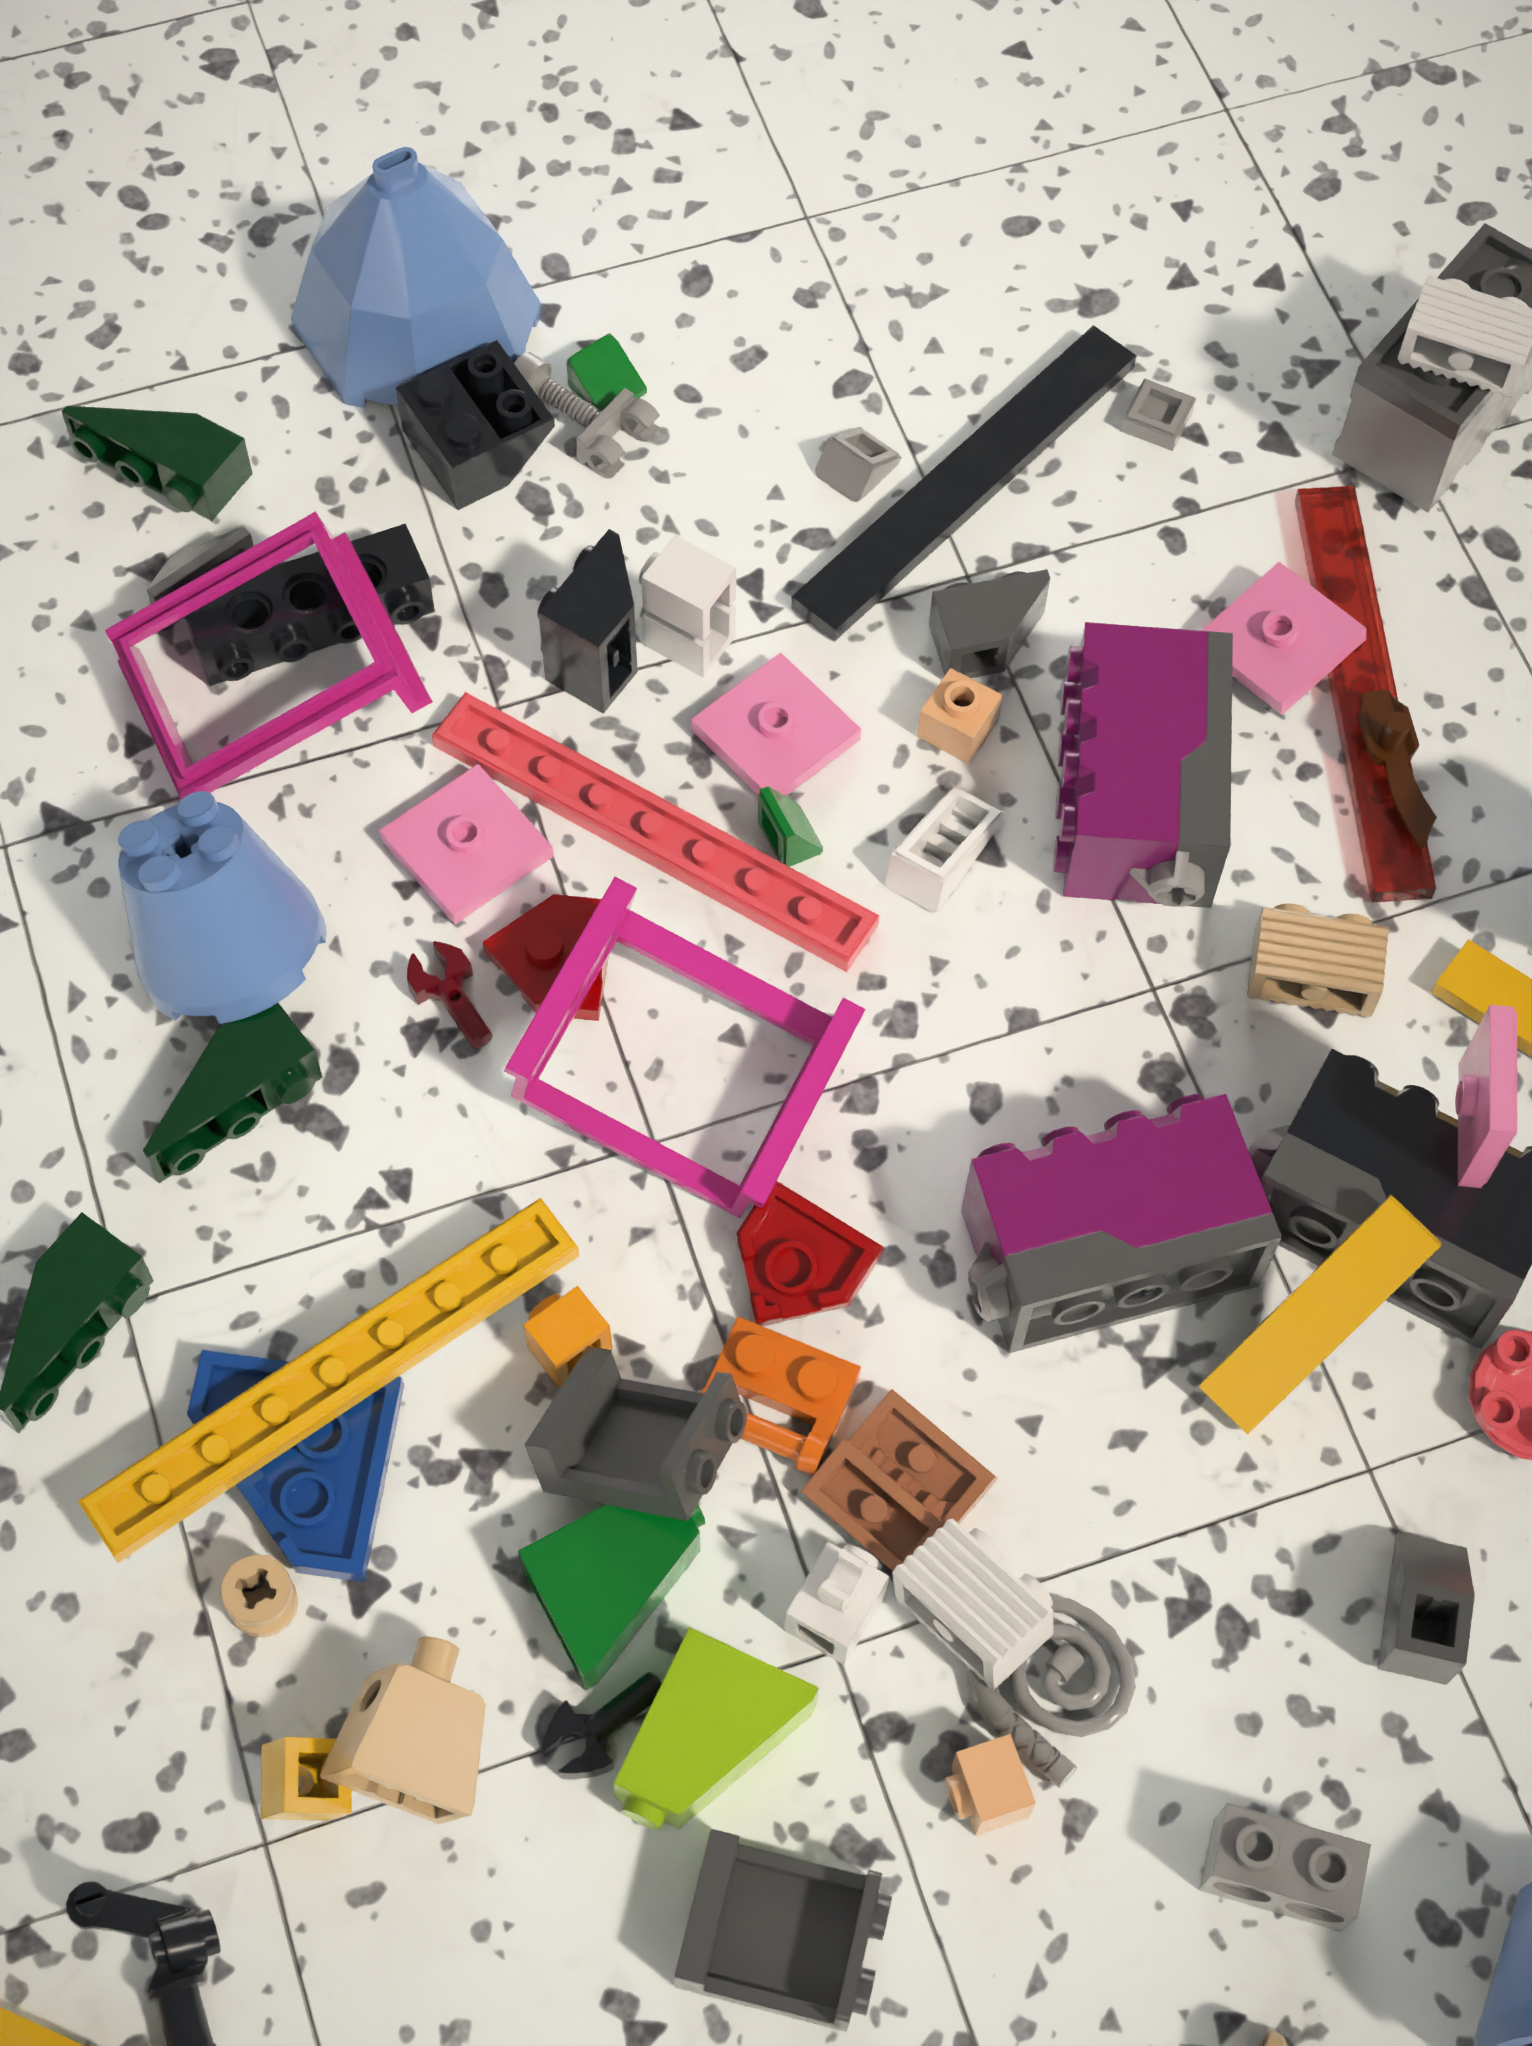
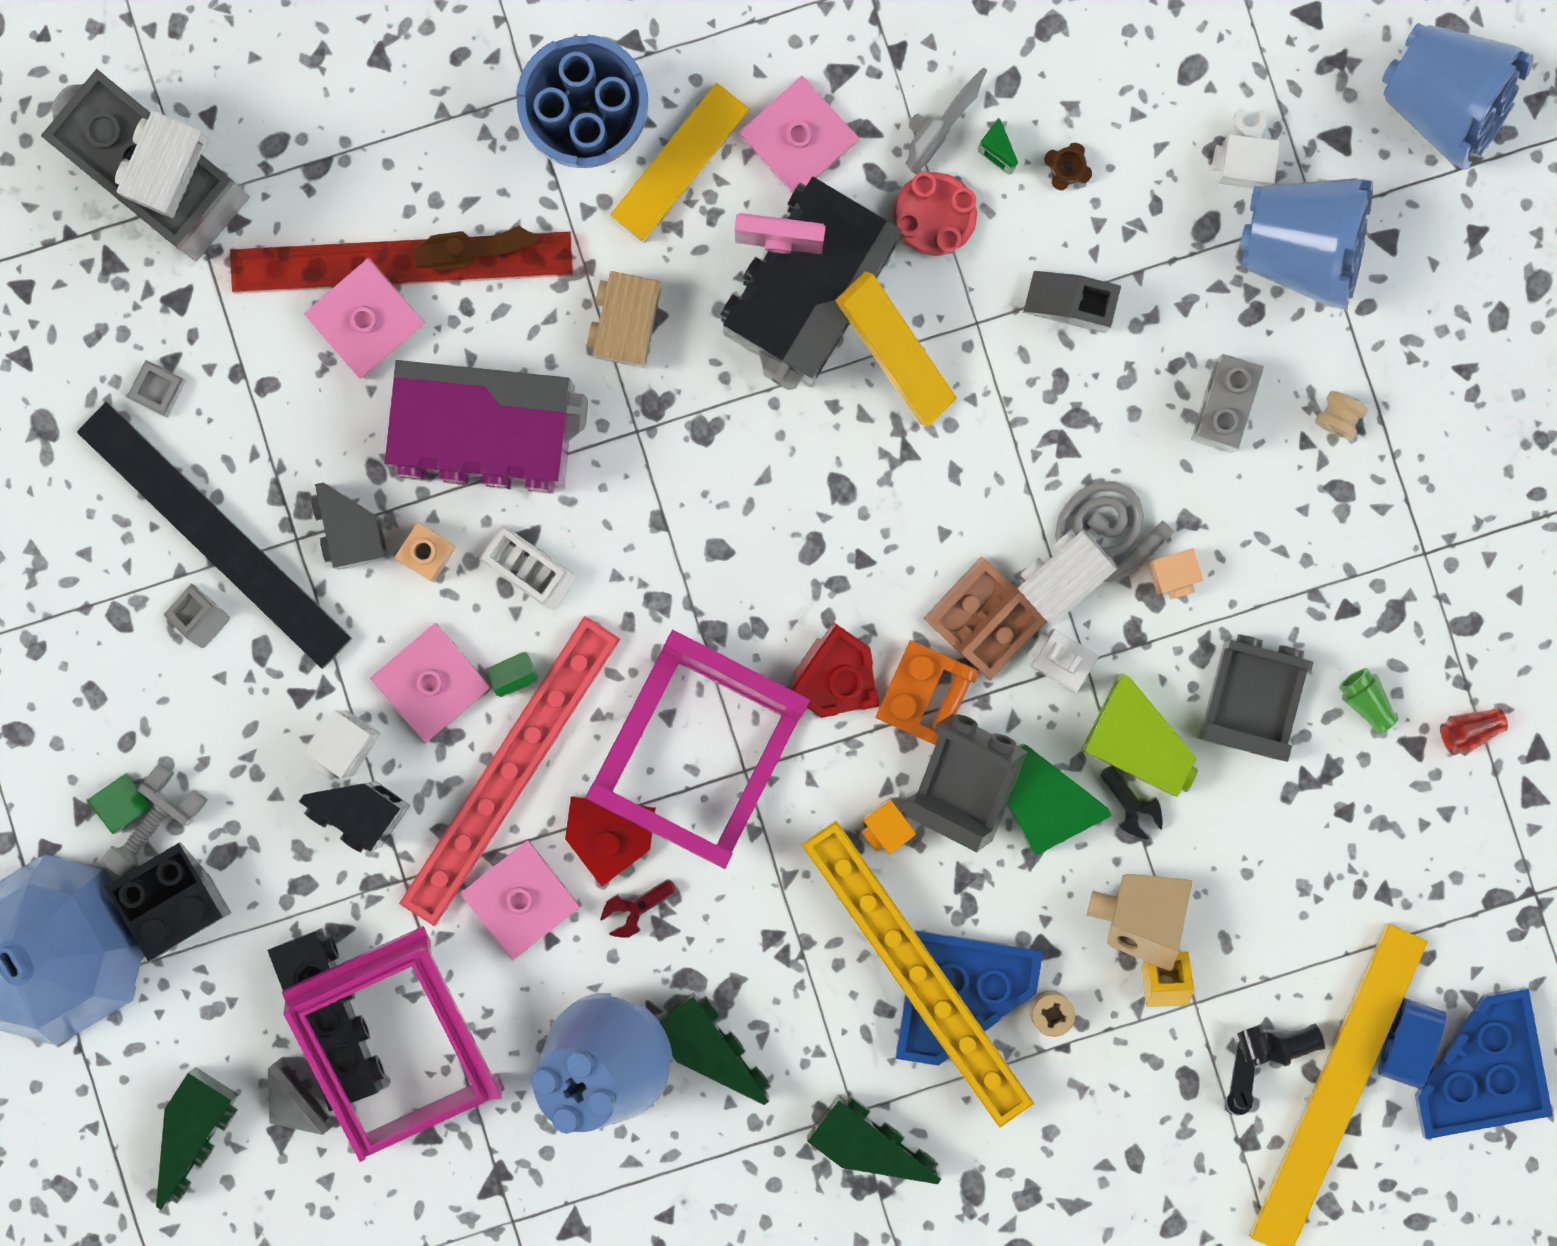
camera: 90 degrees left, 25 degrees up
(1116, 1222) = (825, 474): piece -> none

